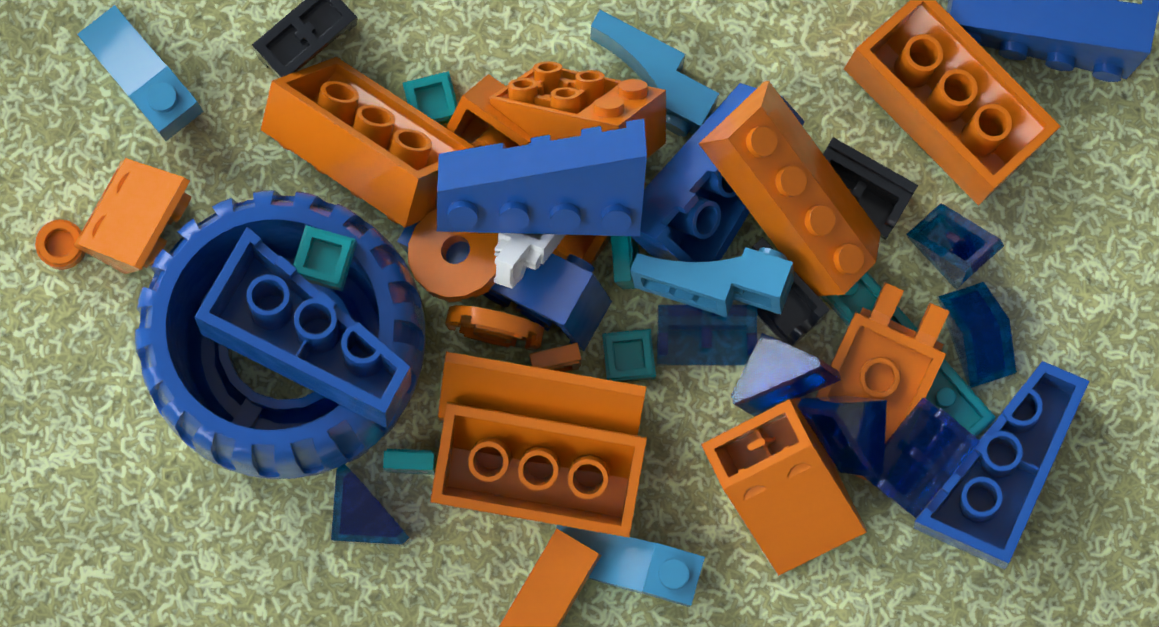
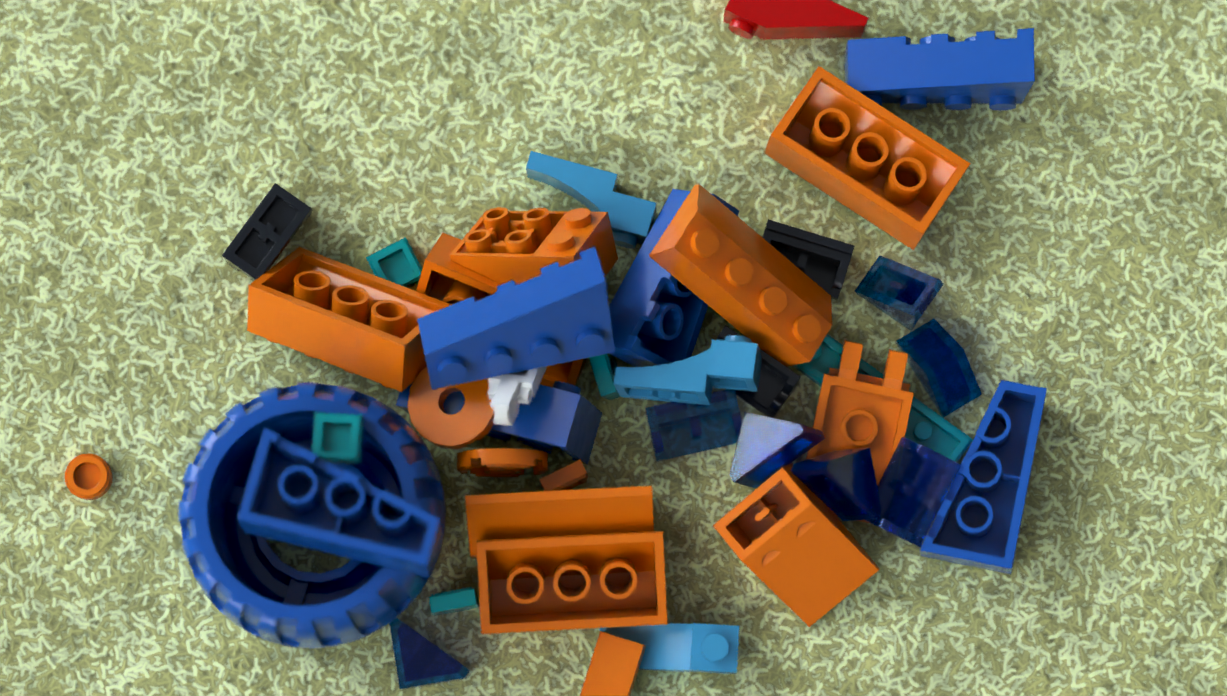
camera: 10 degrees left, 0 degrees up
(132, 215) = (152, 437): orange slope -> none
(140, 73) = (124, 303): dark azure slope -> none
(629, 355) = (629, 459): teal tile -> none

